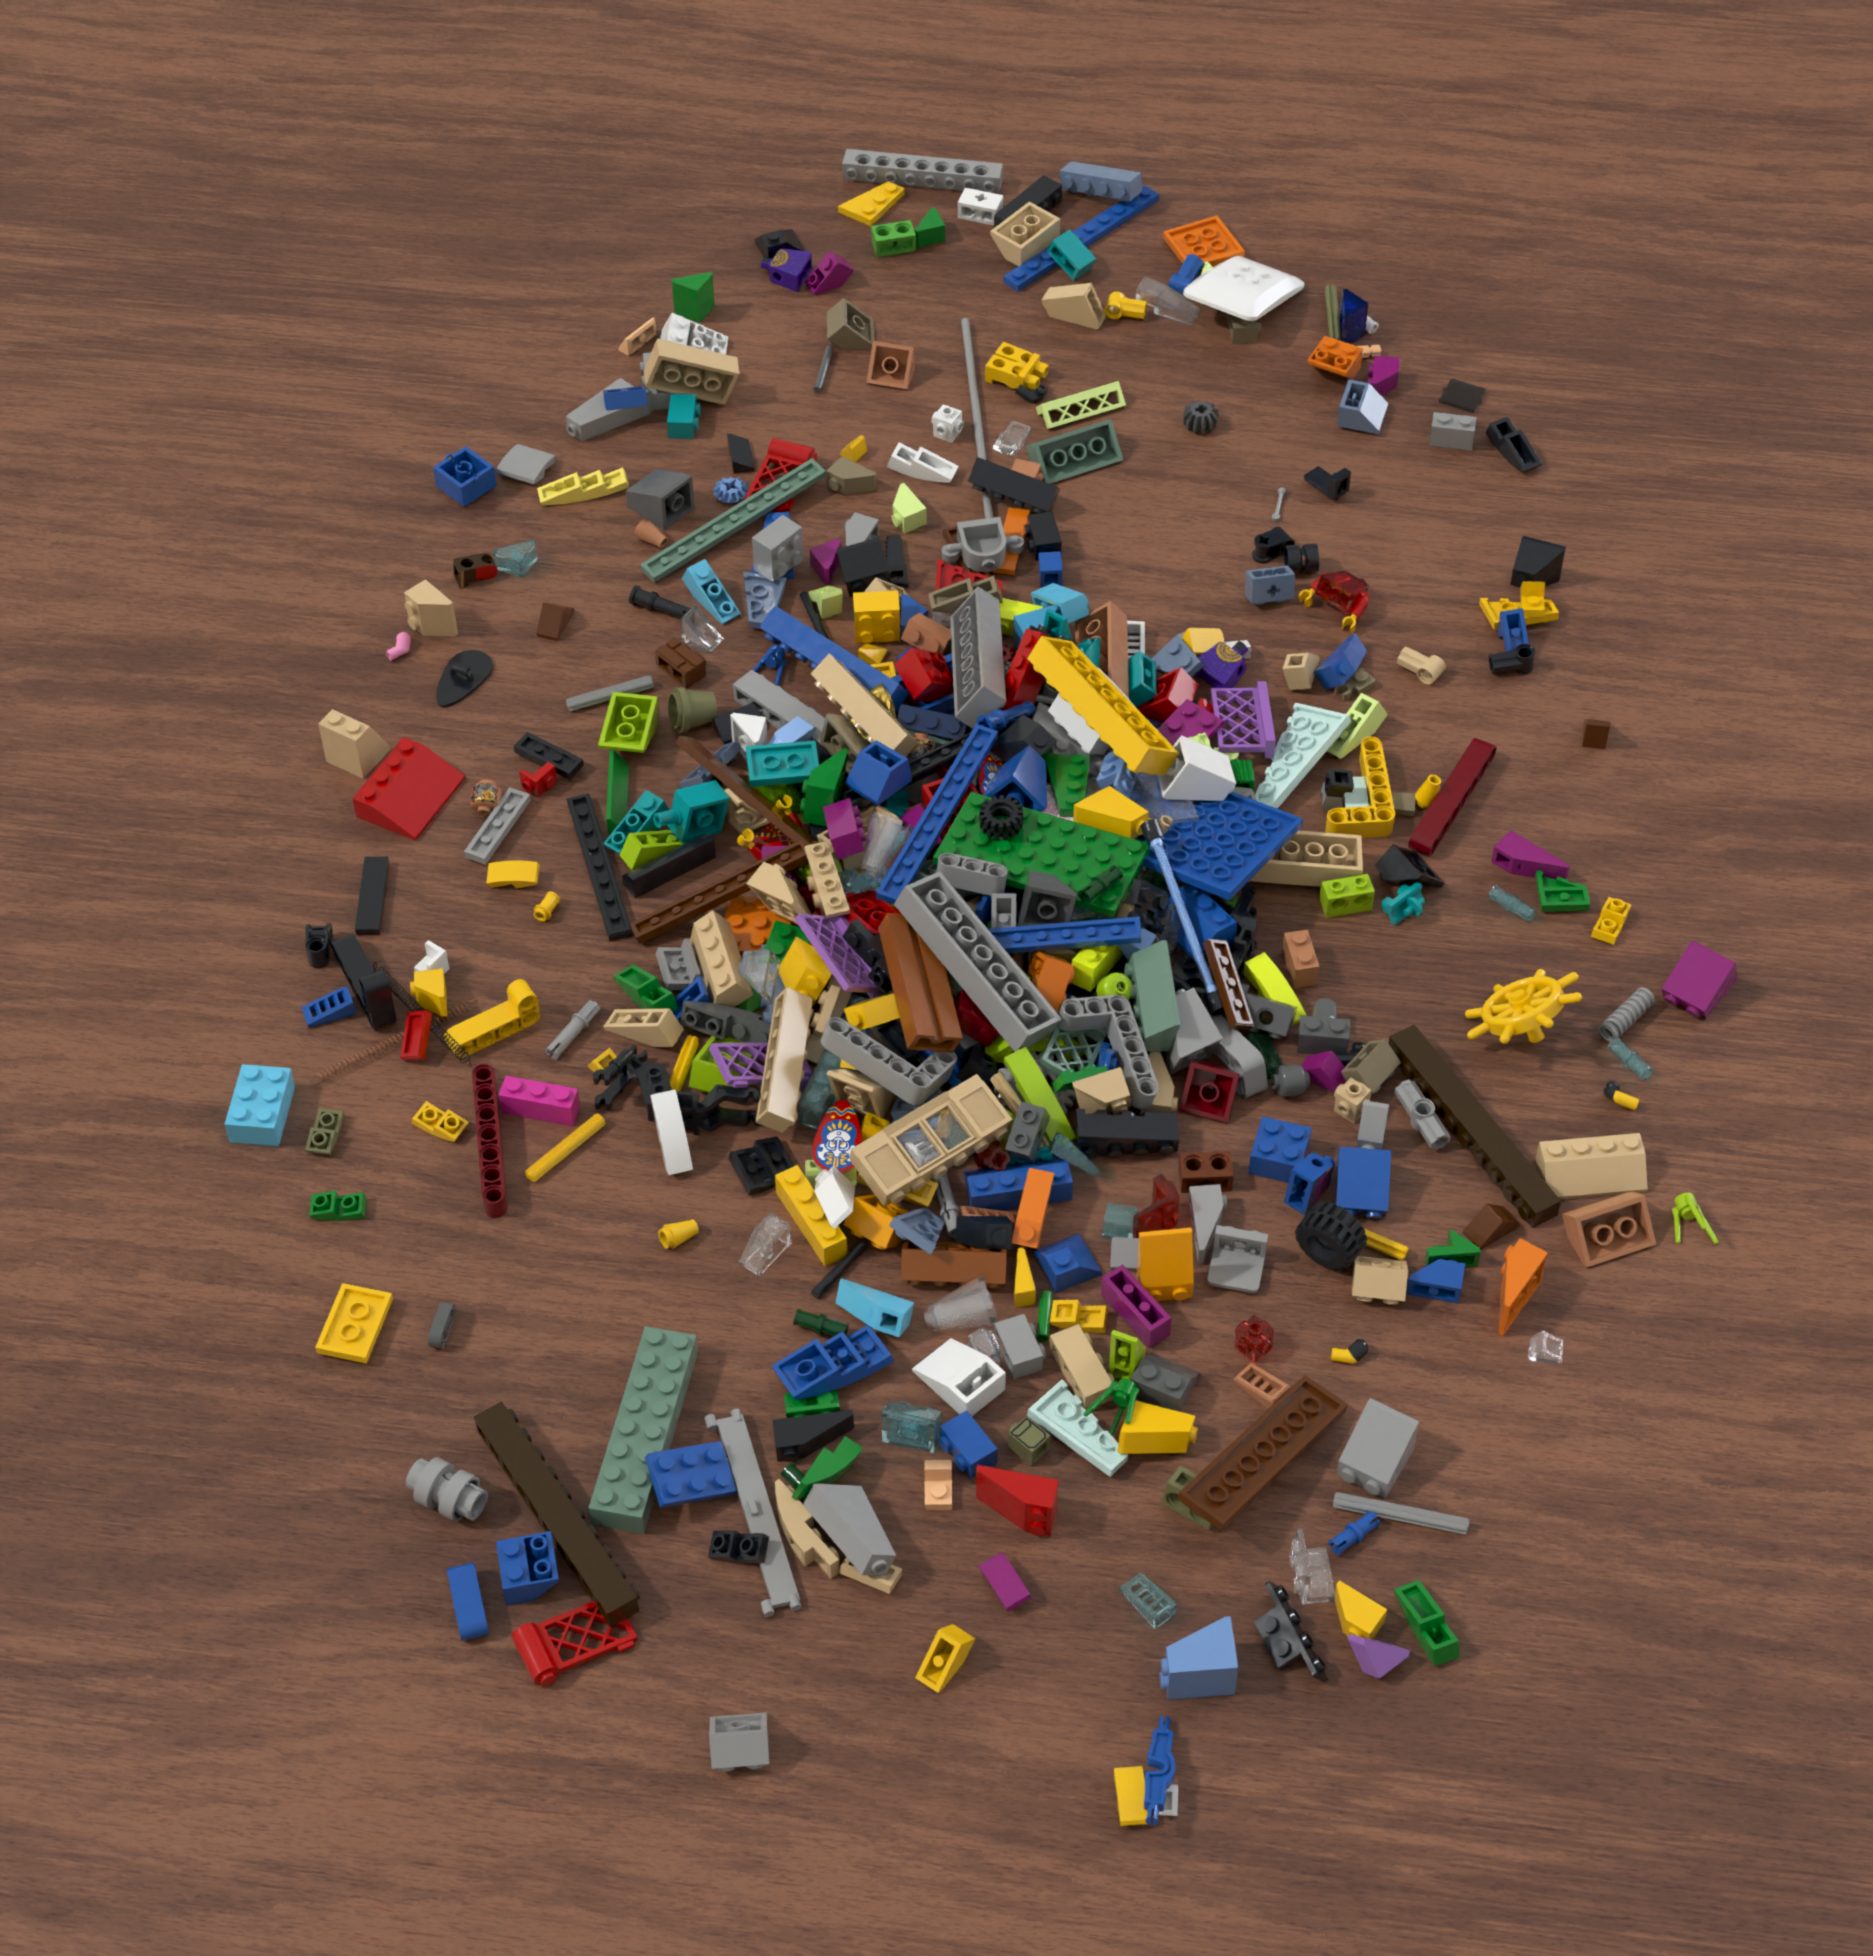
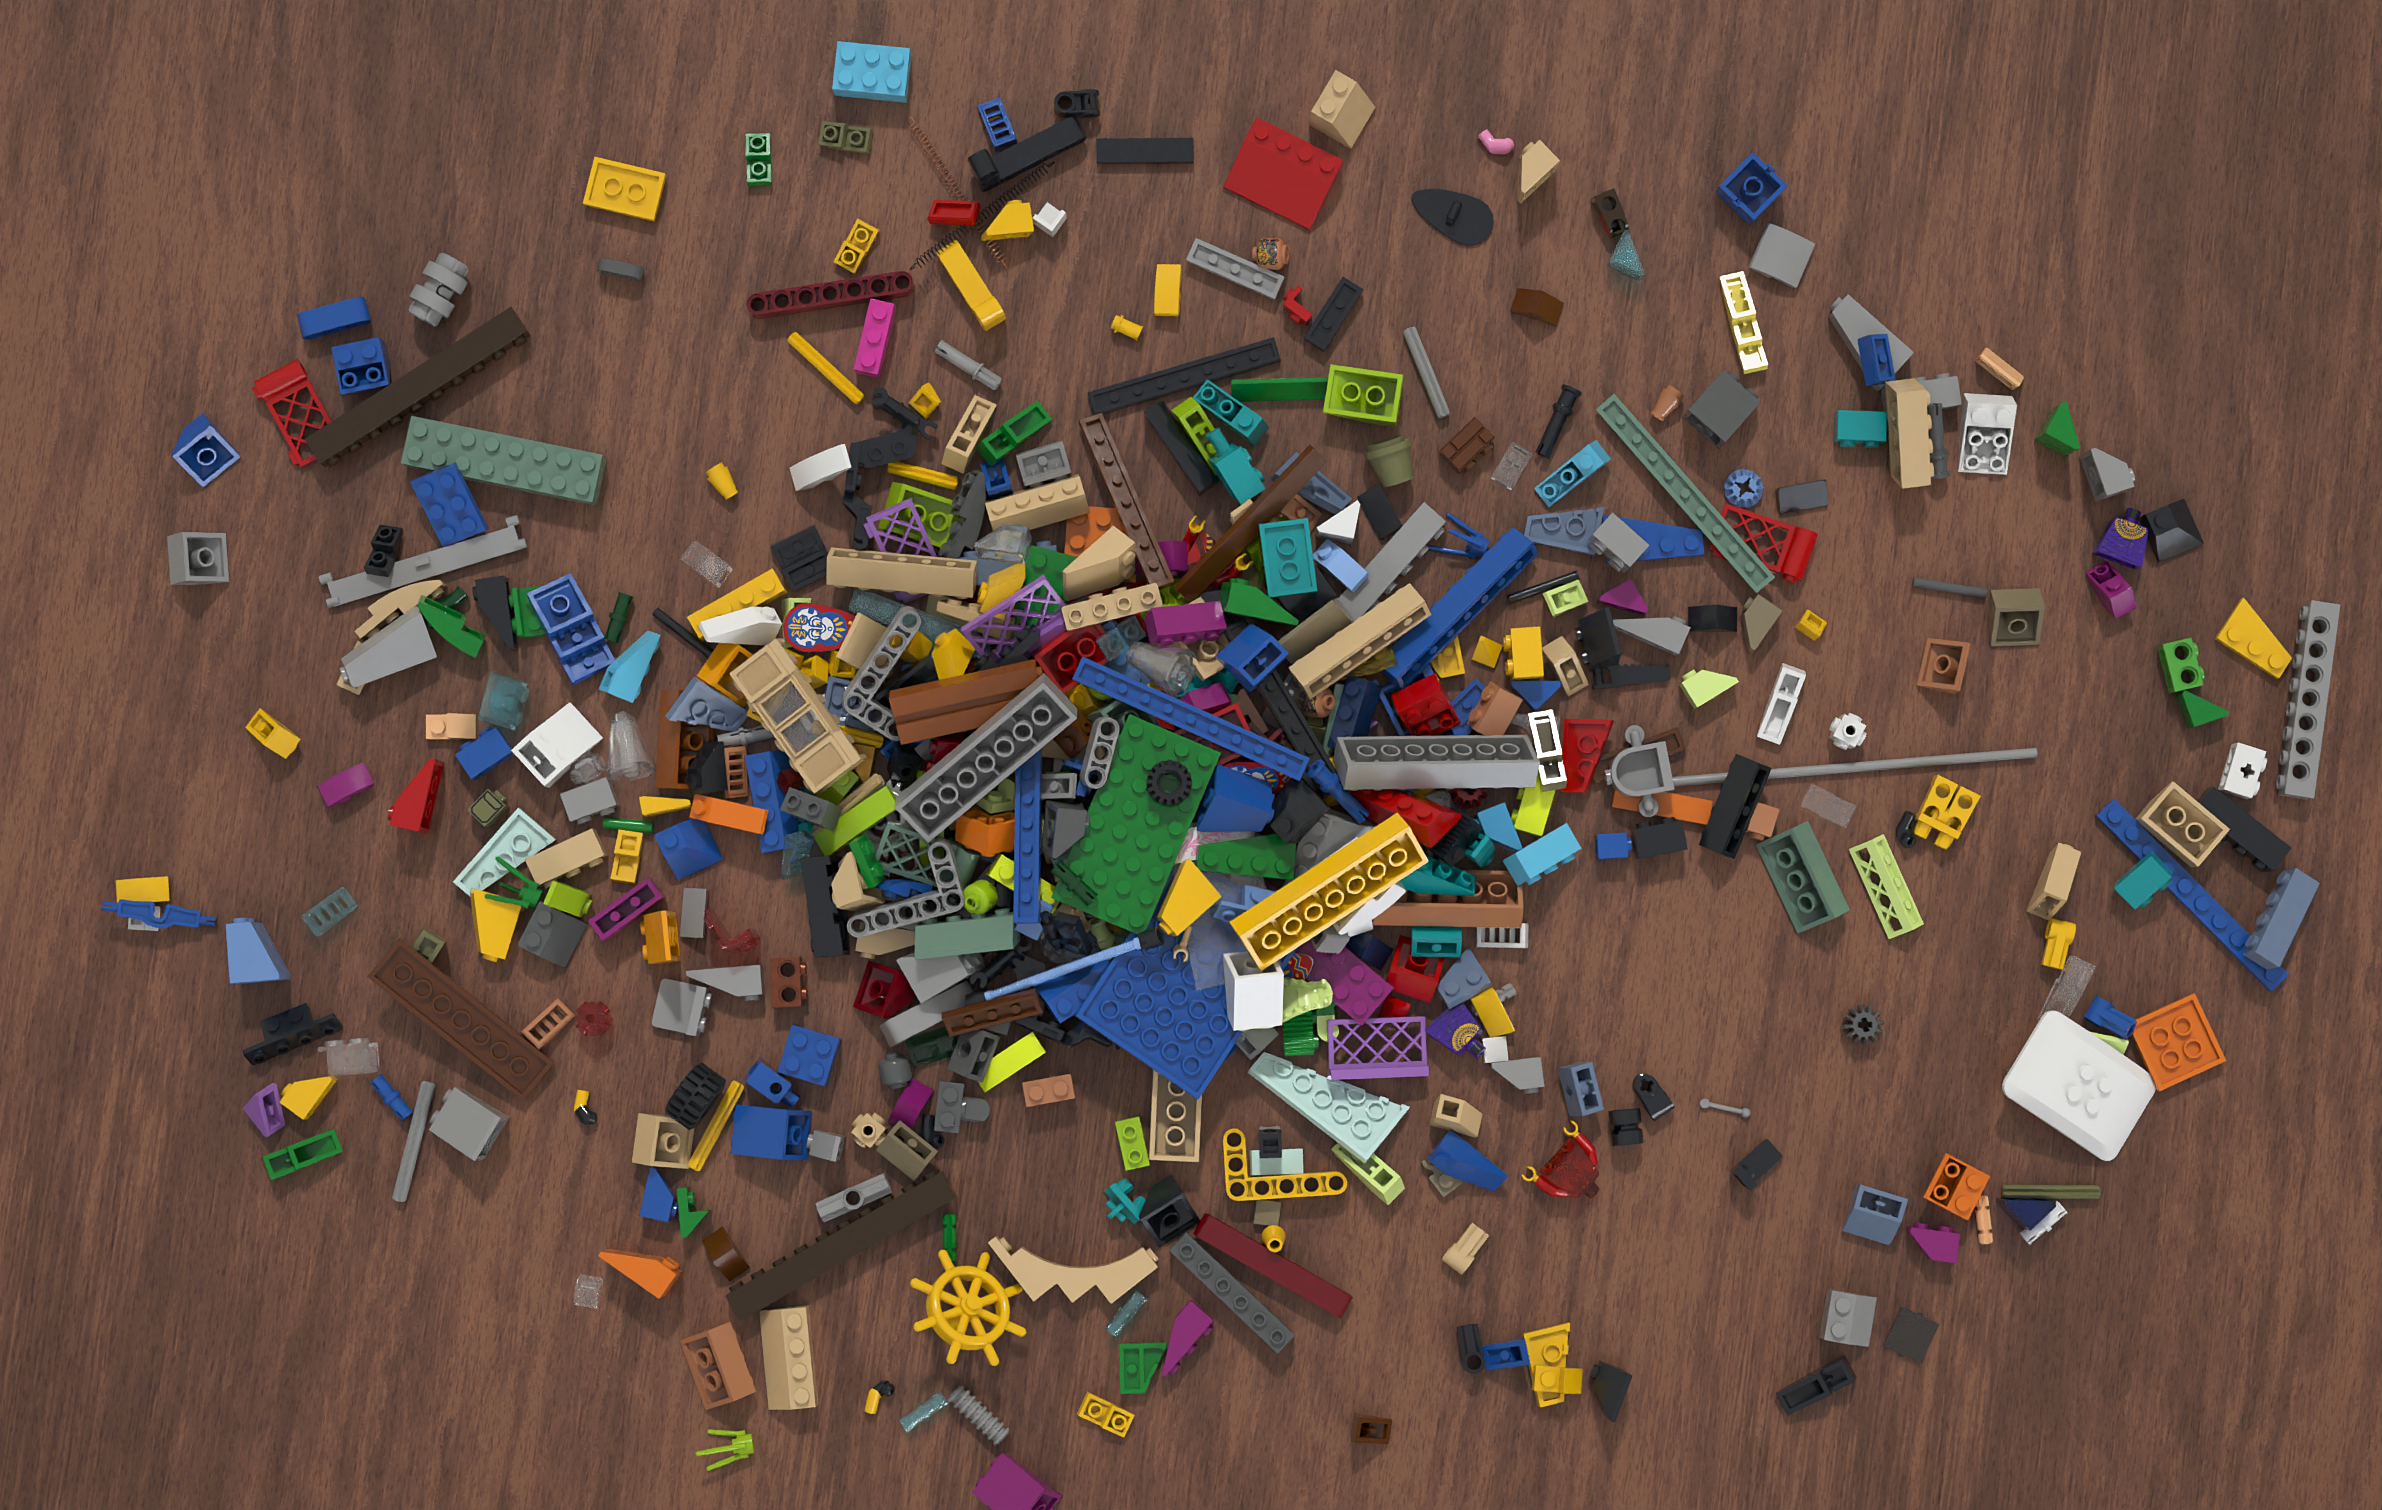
camera: 90 degrees right, 35 degrees up
(608, 1730) = (204, 450): none -> blue slope
(733, 271) = (2106, 474): none -> light grey slope
(845, 507) = (1712, 618): none -> black slope
(1118, 1221) = (727, 899): clear light blue brick -> none
(1258, 626) = (1521, 1073): none -> light grey slope
(1452, 1041) = (949, 1235): none -> green axle
(1481, 823) = (1231, 1292): none -> dark grey brick
(1484, 965) = (1040, 1275): none -> tan arch

